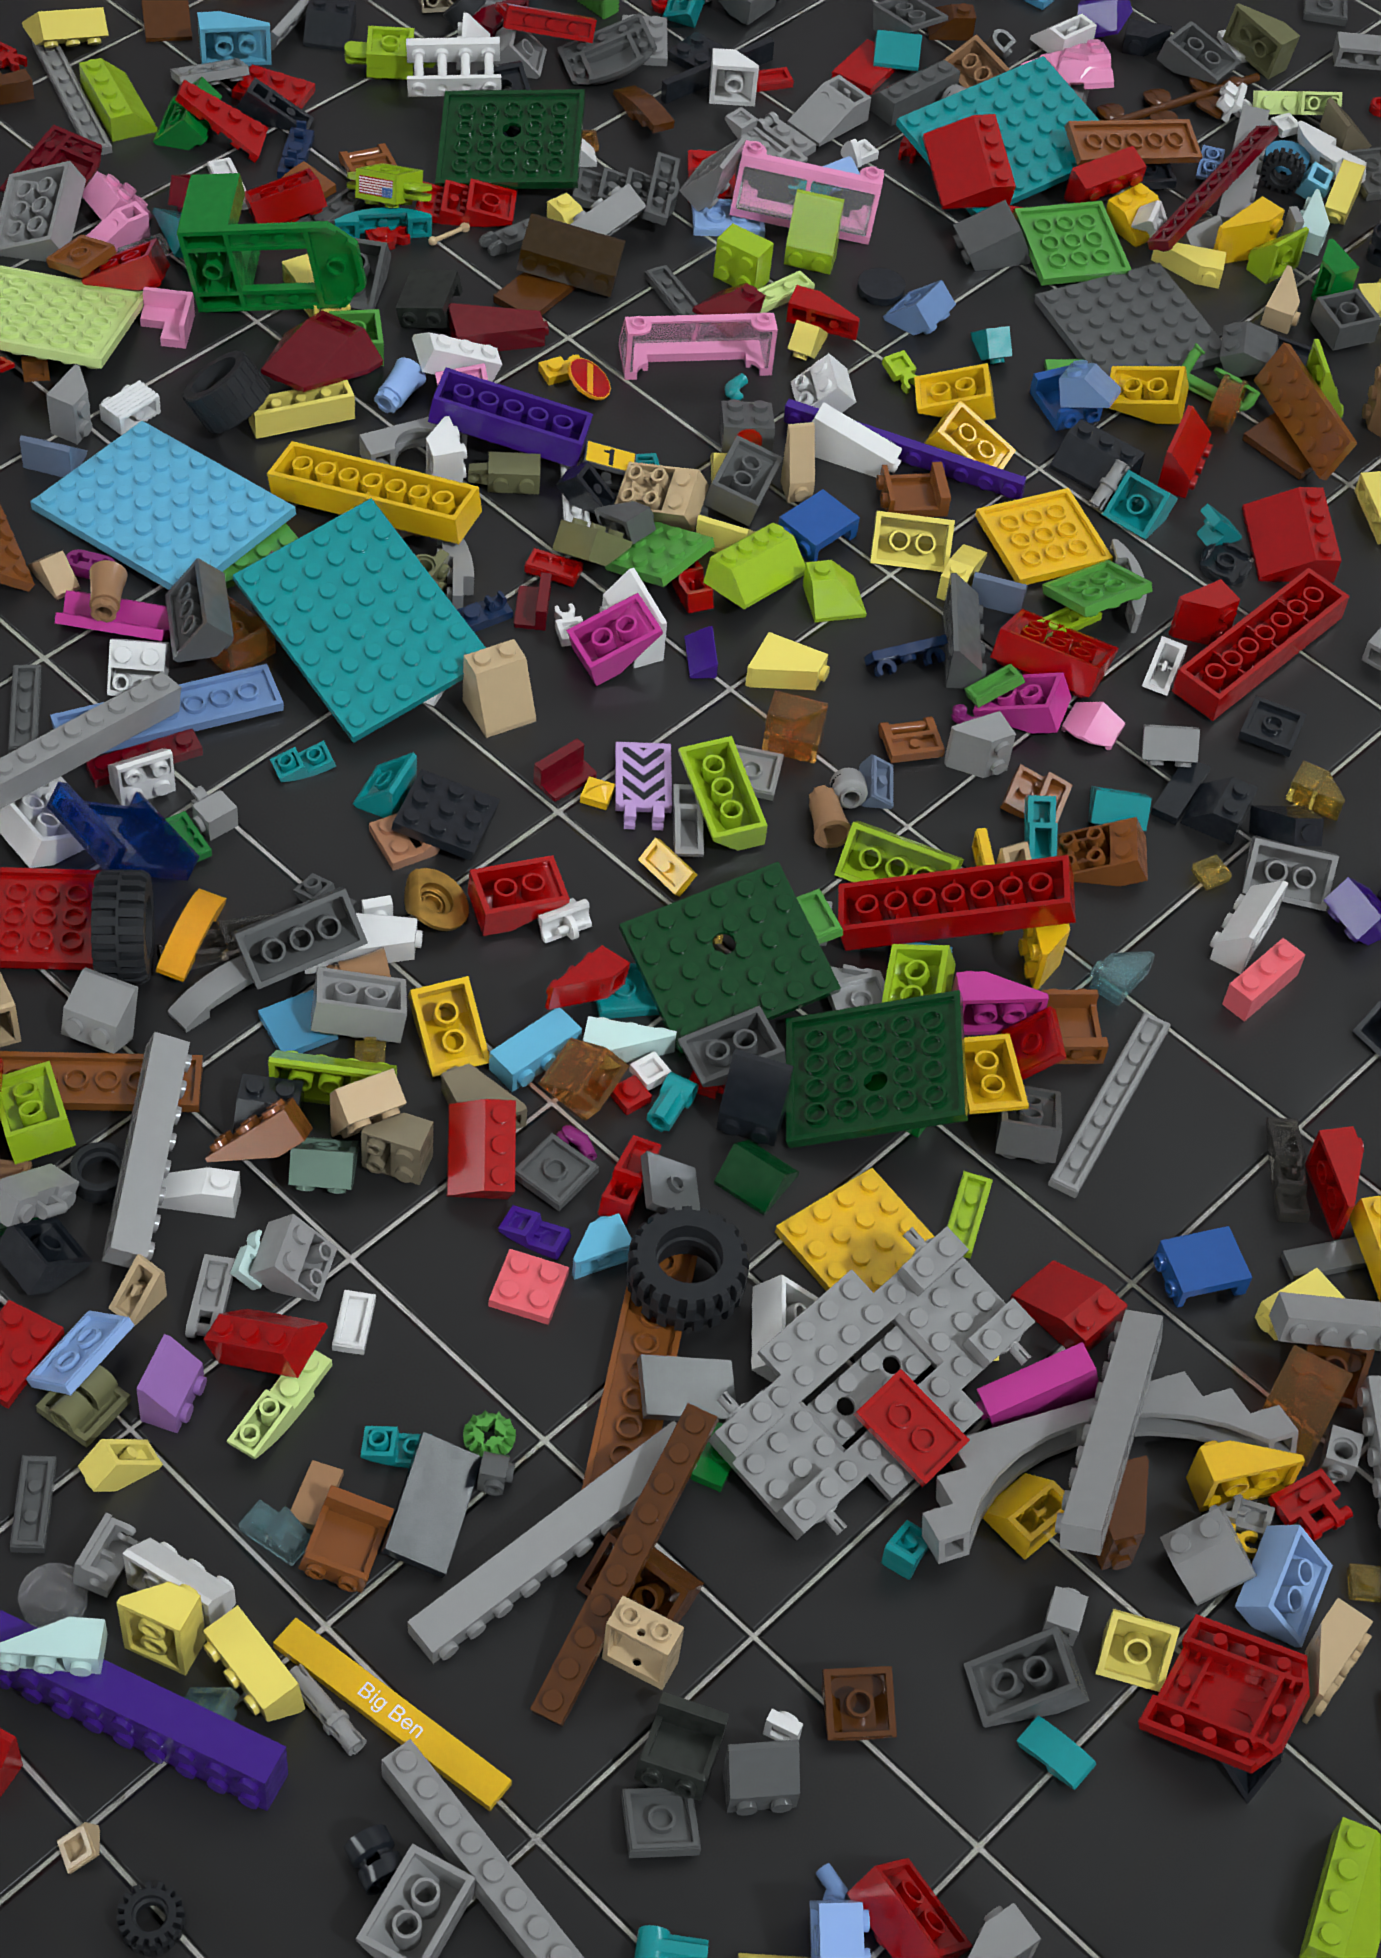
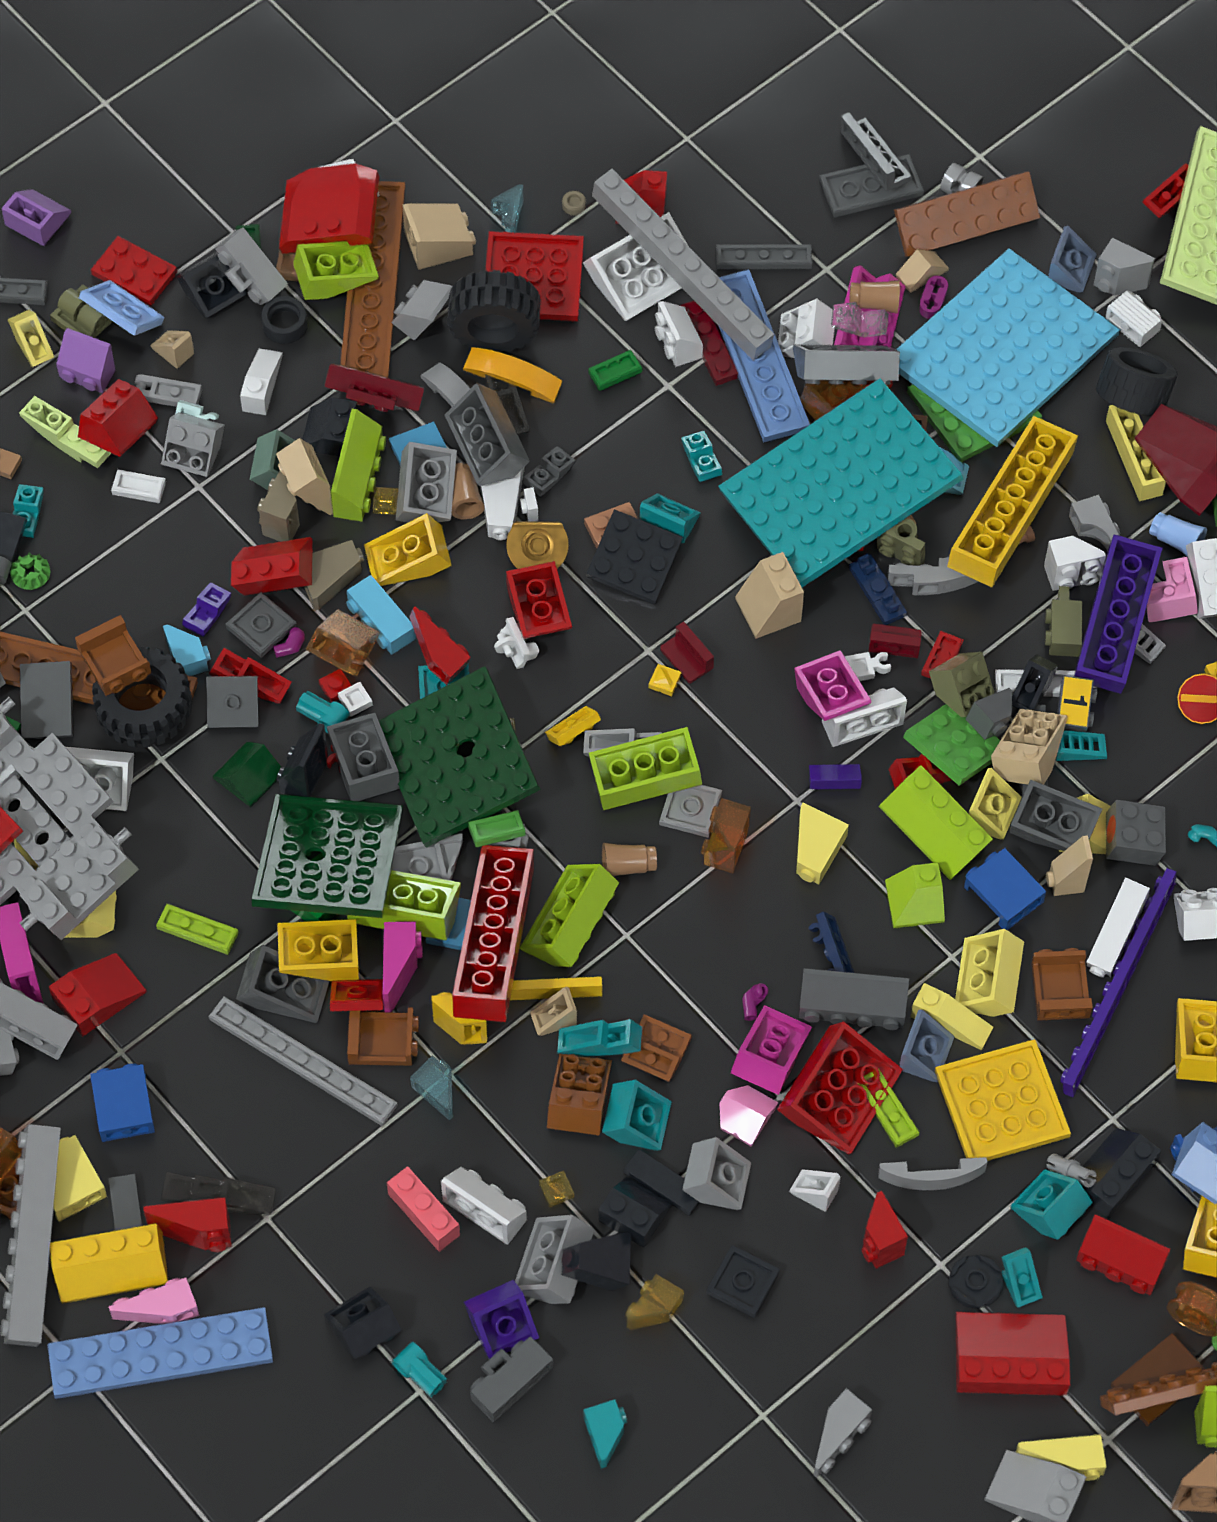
camera: 100 degrees right, 10 degrees up
(124, 835) = (595, 313): clear blue panel -> none
(135, 609) = (851, 319): none -> clear slope
(147, 1150) = (289, 340): light grey brick -> none
(213, 813) = (640, 388): light grey brick -> none
(218, 1066) = (373, 389): none -> dark red bracket
(268, 1136) = (293, 413): slope -> none
(528, 1286) = (157, 603): coral plate -> none
(629, 1039) = (384, 670): light aqua slope -> none
(643, 781) = (676, 710): lavender tile -> none
(659, 1277) = (112, 656): none -> dark orange panel
(849, 787) = (662, 881): light grey head -> none
(854, 1230) = (178, 845): yellow plate -> none
(879, 782) = (674, 912): sand blue slope -> none
(911, 740) = (718, 947): dark orange plate -> none
(969, 436) = (1130, 1047): yellow slope -> none
(981, 746) = (704, 997): light grey slope -> none
(994, 685) = (789, 1023): bright green tile -> none
(1097, 588) = (916, 1132): bright green plate -> none
(1260, 644) = (848, 1284): red brick -> none

